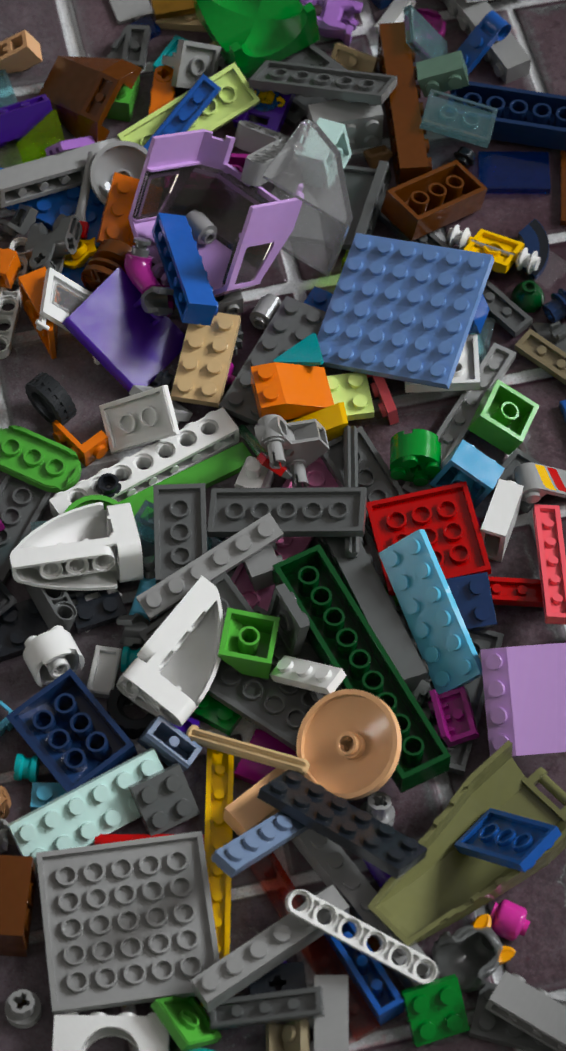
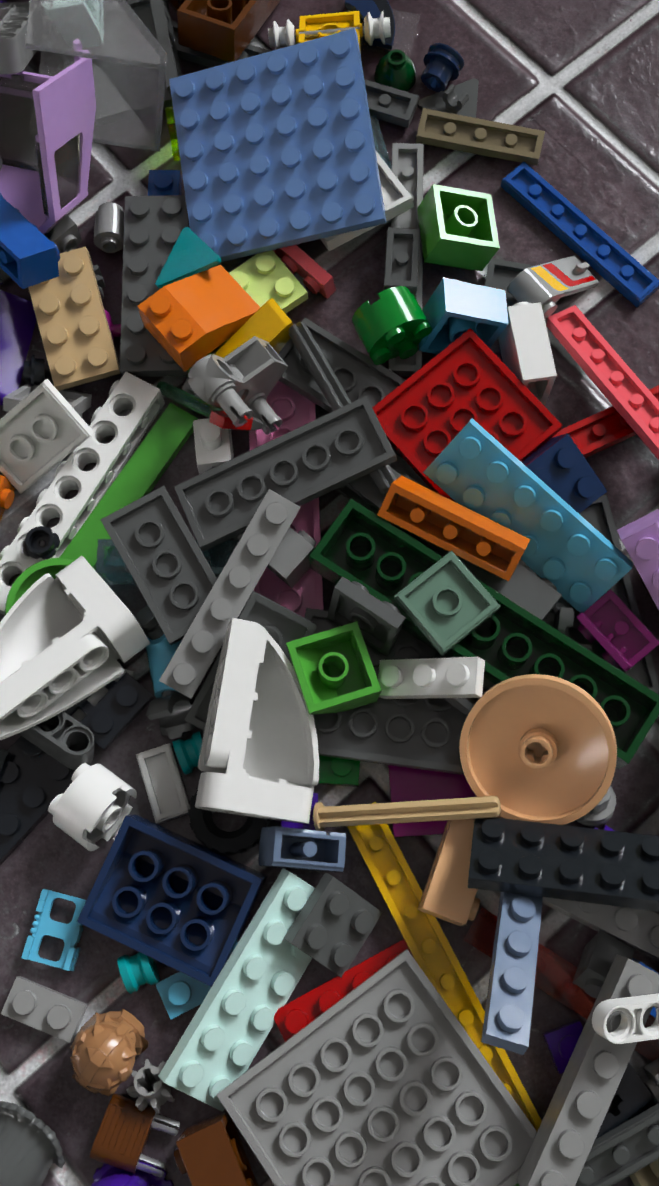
camera: 25 degrees left, 15 degrees up
(342, 631) = (446, 602): none -> sand green tile
(376, 593) = (453, 527): none -> orange brick
(452, 420) = (402, 258): none -> dark grey plate

